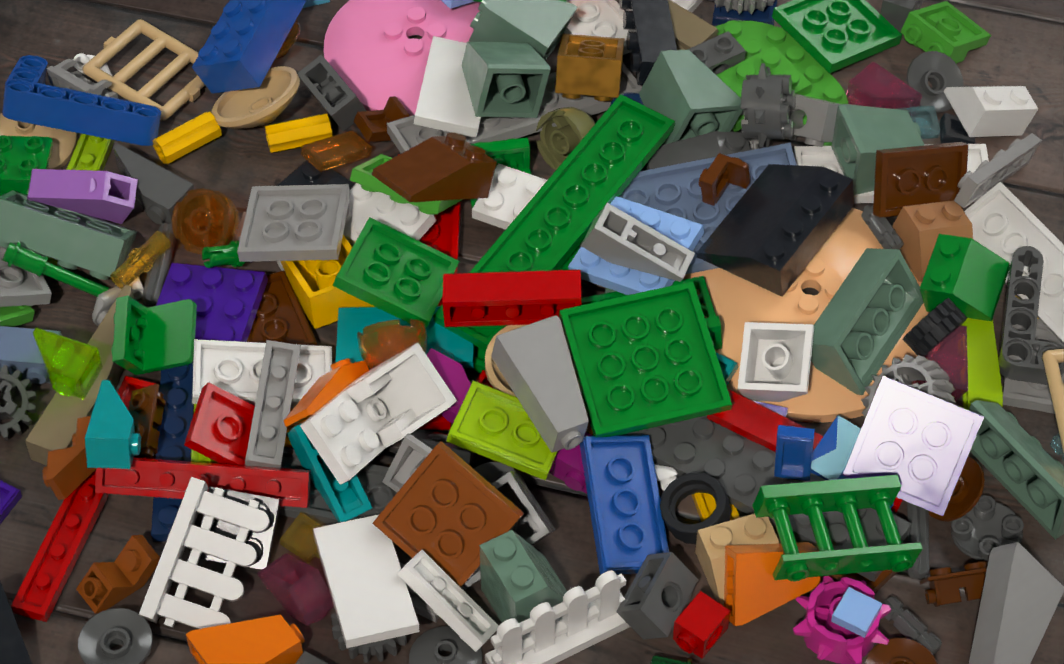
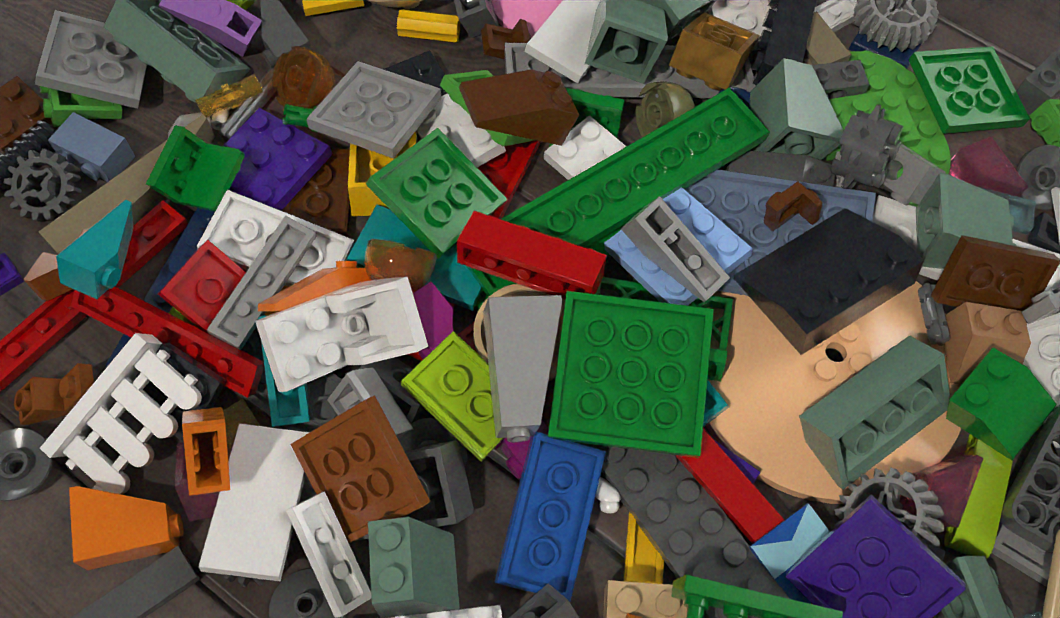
camera: 20 degrees right, 10 degrees up
(38, 265) = (136, 67): green pin -> none
(68, 363) = (104, 173): clear neon green slope -> none
(147, 410) = (157, 238): reddish brown hinge -> none
(305, 544) = (206, 451): none -> orange slope
(336, 150) = (451, 53): clear orange tile -> none
(688, 485) = (604, 524): black tyre -> none
(775, 361) = (766, 424): white slope -> none
(794, 452) = (741, 540): blue tile -> none
(934, 328) = (948, 448): black tyre -> none

